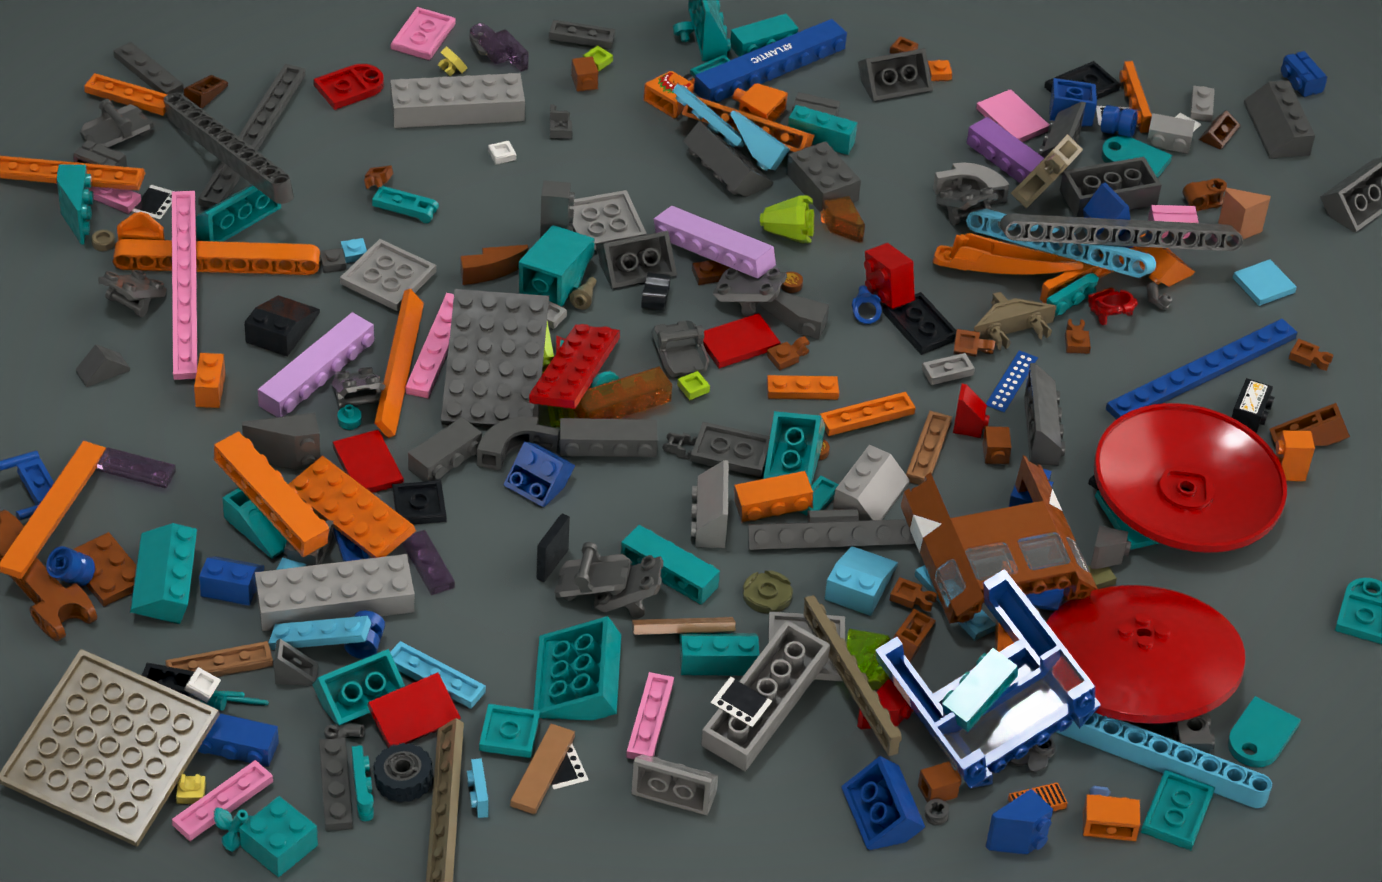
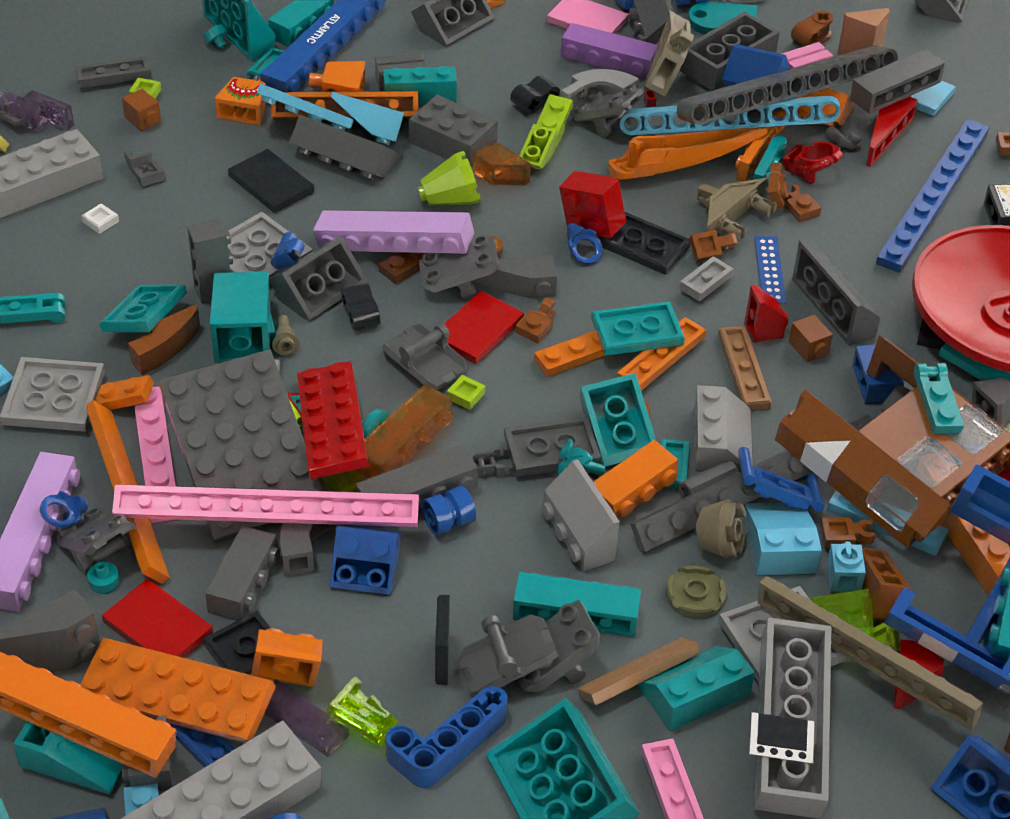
camera: 25 degrees left, 0 degrees up
(354, 358) = (72, 504): none -> blue piece
(437, 292) = (125, 392): none -> orange plate
(437, 516) = (287, 657): none -> orange slope
(469, 574) = (361, 713): none -> clear neon green wing
(485, 409) = (266, 505): none -> bright pink plate
(488, 233) = (143, 308): none -> teal tile
(520, 616) = (483, 712): none -> blue beam
(620, 464) = (452, 509): none -> blue wheel
(622, 228) = (287, 252): none -> blue piece
(652, 167) = (271, 180): none -> black tile
(738, 463) = (581, 455): none -> teal plant
(813, 554) = (721, 528): none -> dark tan cone
(858, 386) = (637, 328): none -> teal tile
(879, 542) = (778, 487): none -> blue plate
(888, 616) = (846, 567): none -> medium azure brick
(899, 208) = (547, 132): none -> lime slope
(915, 169) = (534, 94): none -> black axle
(1013, 206) = (649, 98): none -> red piece
(1031, 519) = (938, 398): none -> teal plate
(1059, 317) = (777, 187): none -> dark orange plate
(1212, 294) = (889, 125): none -> red slope
(1228, 262) = (897, 81): none -> dark grey brick

